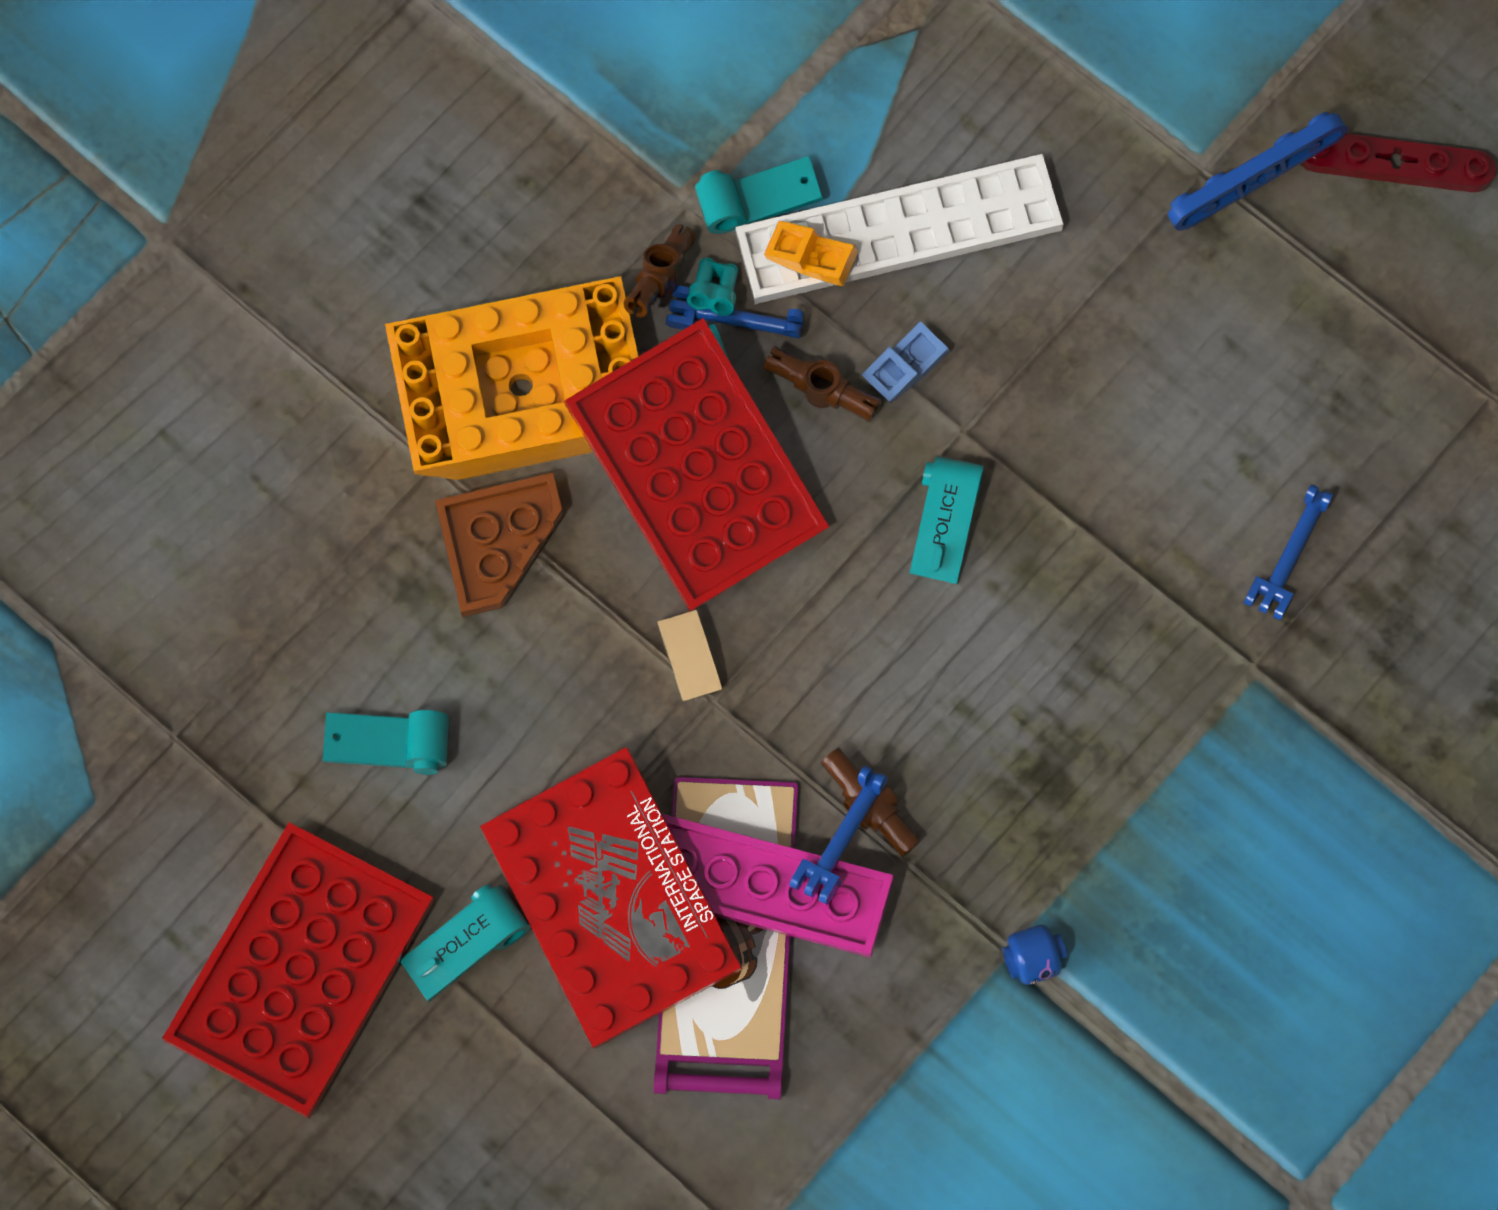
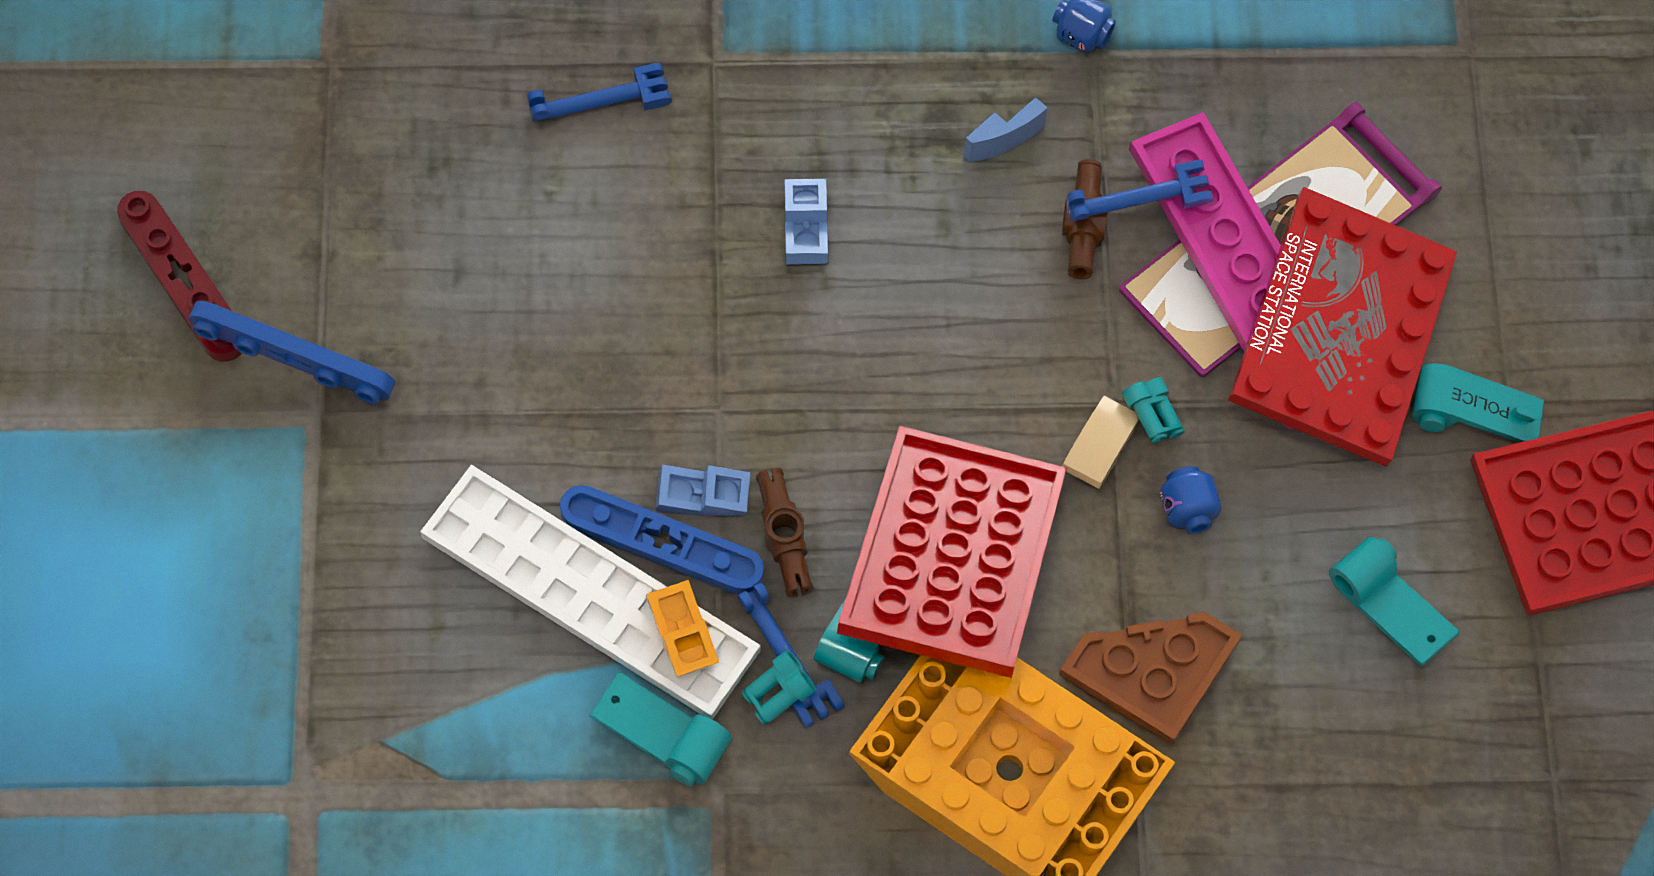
camera: 140 degrees left, 5 degrees down
(589, 673) = (1190, 499): none -> blue head
(659, 270) = (829, 727): reddish brown pin -> none
(692, 717) = (1149, 395): none -> teal piece
(857, 320) = (622, 522): none -> blue piece
(946, 517) = (785, 356): teal door -> none
(995, 802) = (998, 136): none -> medium blue slope
(1053, 610) = (806, 221): none -> medium blue slope

